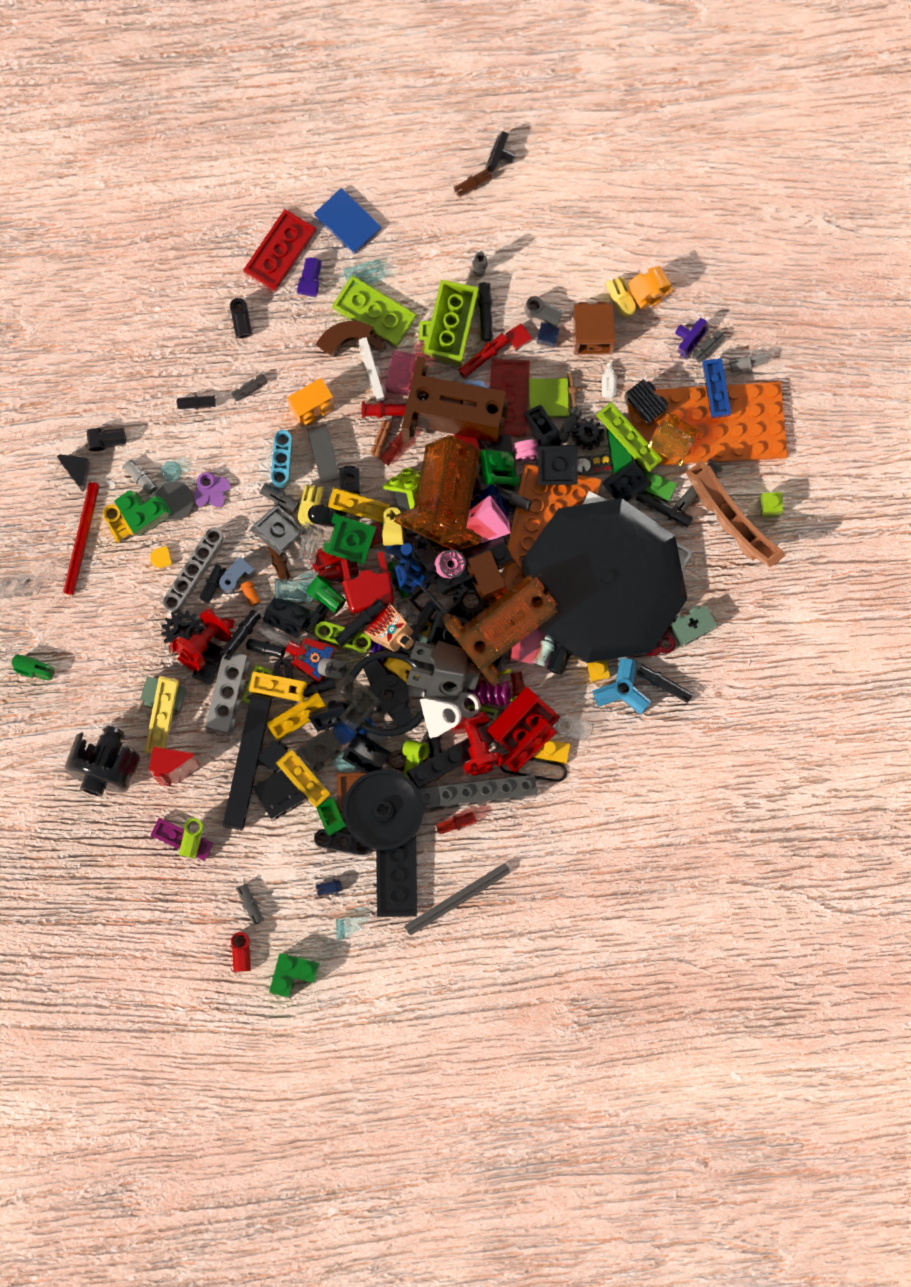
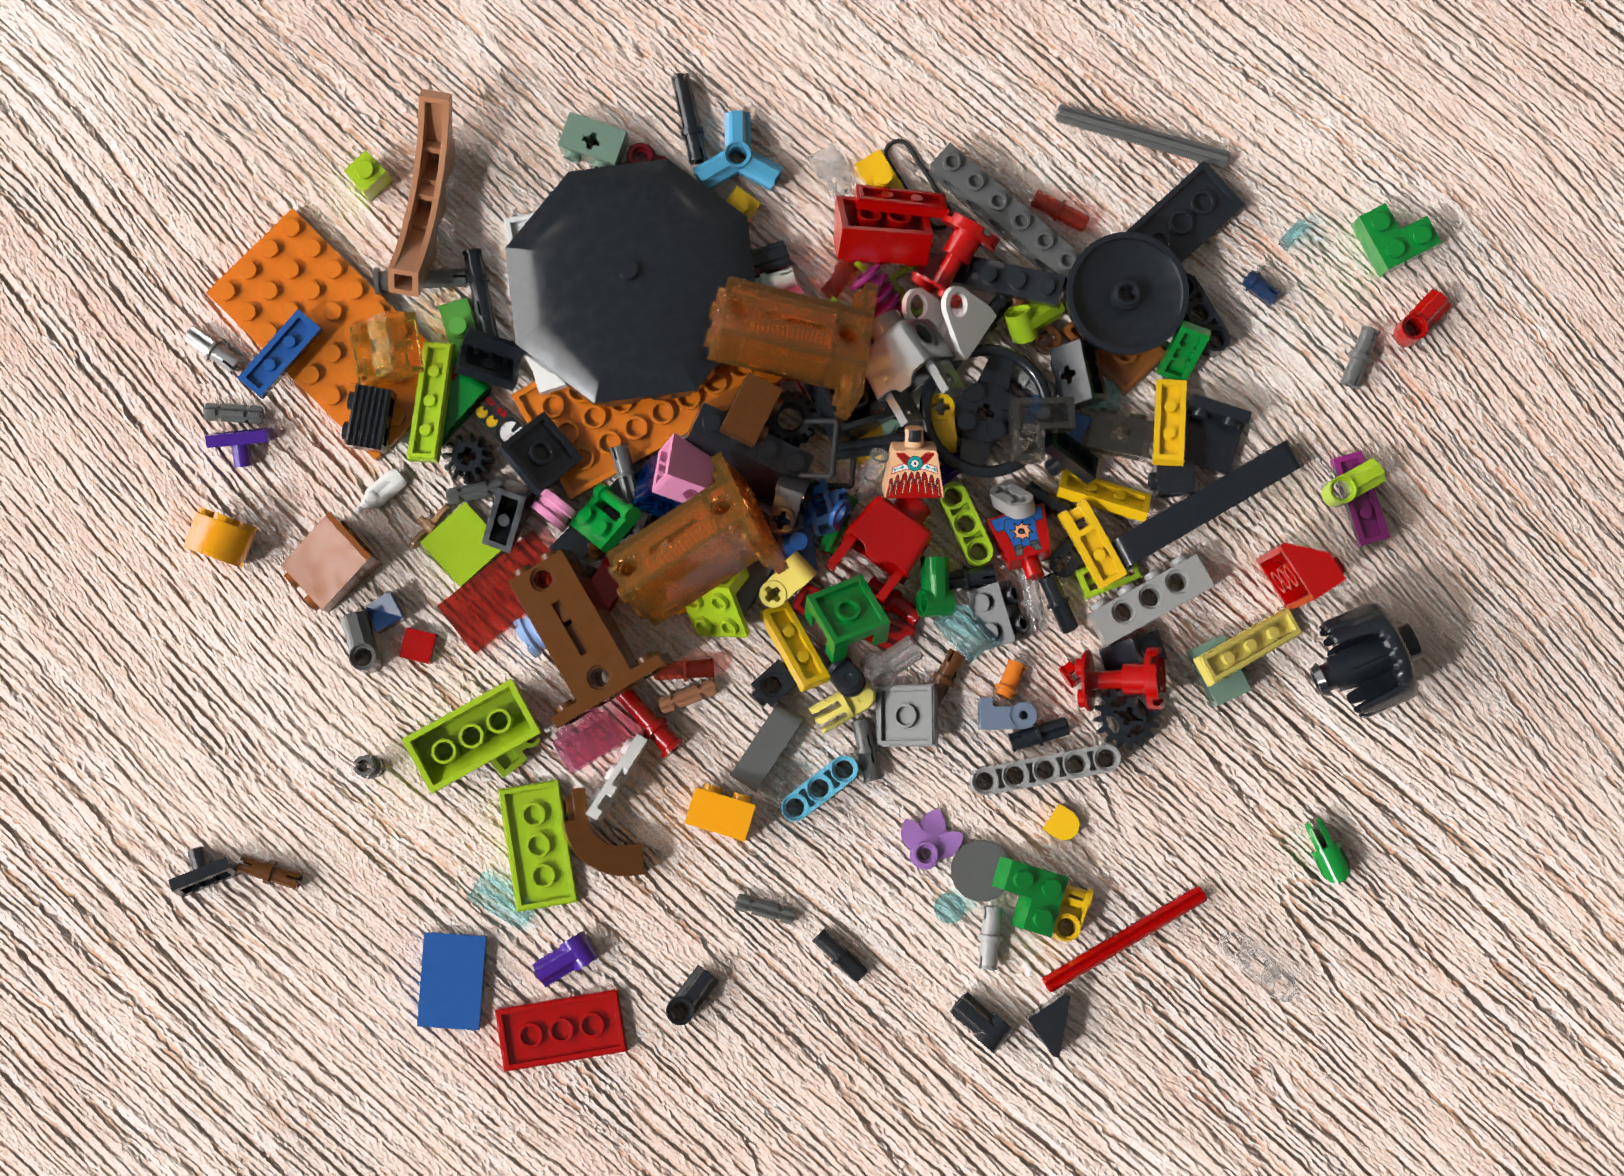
camera: 125 degrees left, 5 degrees up
(244, 628) = (1061, 645): black pin -> none
(367, 616) = (925, 509): black pin -> none
(458, 564) = (766, 459): bright pink wheel -> none
(481, 357) = (442, 661): red pin -> none
(485, 311) = (427, 706): black pin -> none
(621, 297) = (261, 565): light yellow arm -> none

